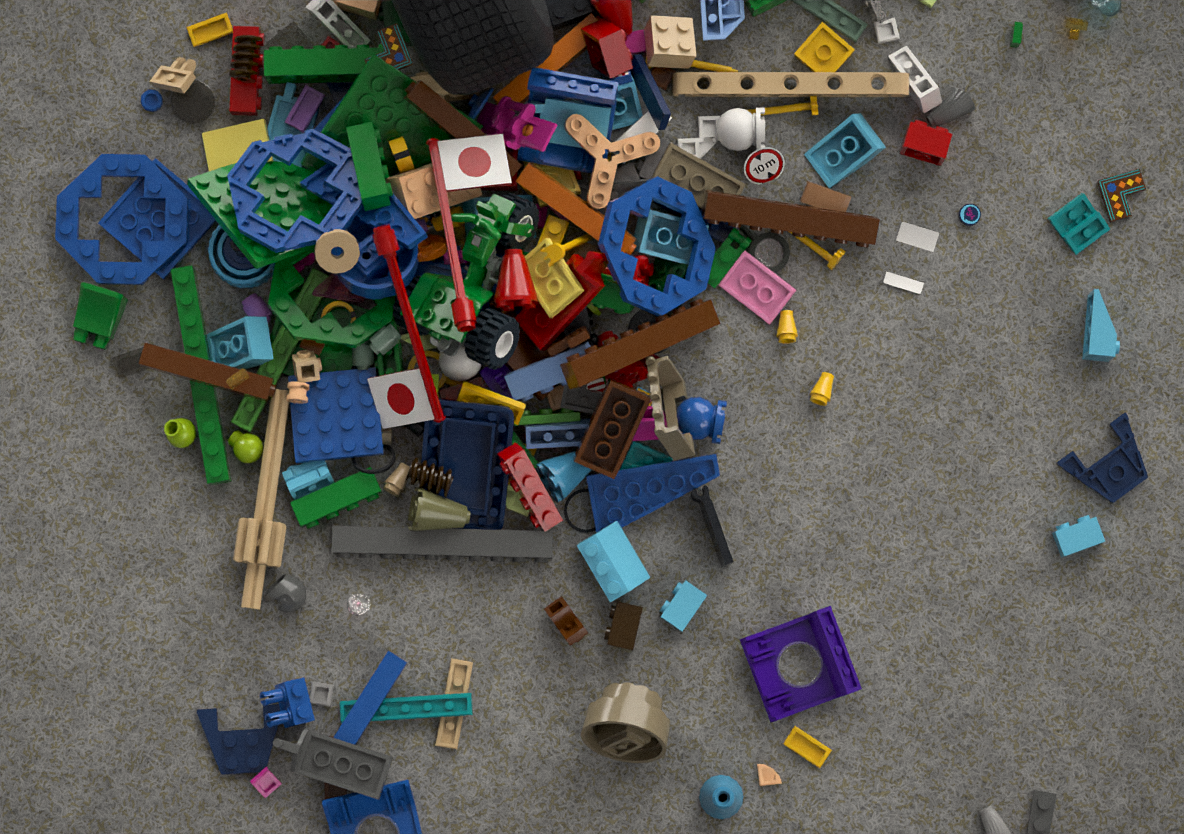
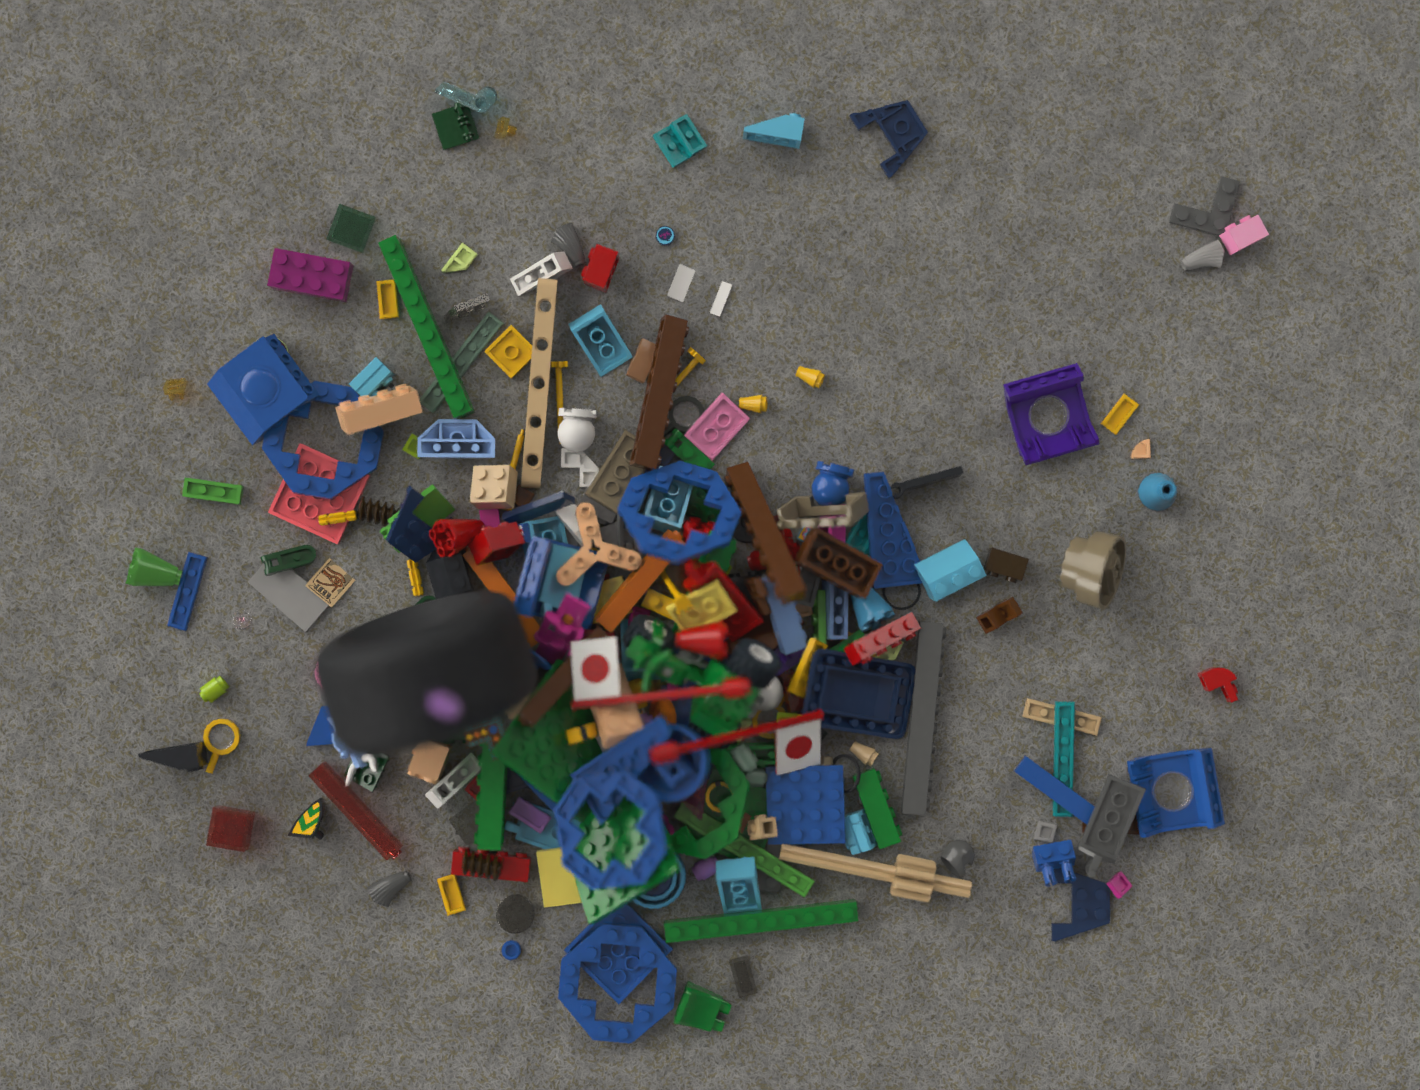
camera: 90 degrees left, 5 degrees up
(176, 77) = (493, 928): tan hinge -> none
(180, 432) = (810, 941): lime piece -> none
(204, 372) = (762, 916): reddish brown brick -> none
(237, 379) = (773, 891): clear yellow tile -> none
(246, 446) = (826, 884): lime piece -> none
(297, 392) = (785, 837): light nougat wheel -> none
(338, 263) = (680, 797): tan tile -> none
(358, 604) = (970, 794): clear tile -> none
(369, 166) = (592, 763): green brick -> none
(430, 476) = (867, 725): dark brown piece -> none
(435, 512) = (898, 722): olive cone -> none
(683, 605) = (991, 512): medium azure brick -> none
(764, 165) = (609, 412): sticker -> none
(886, 31) = (496, 295): white tile -> none
(1016, 34) = (507, 181): green tile -> none
(1078, 536) = (955, 165): medium azure brick -> none
(1115, 190) = (652, 106): reddish brown tile -> none

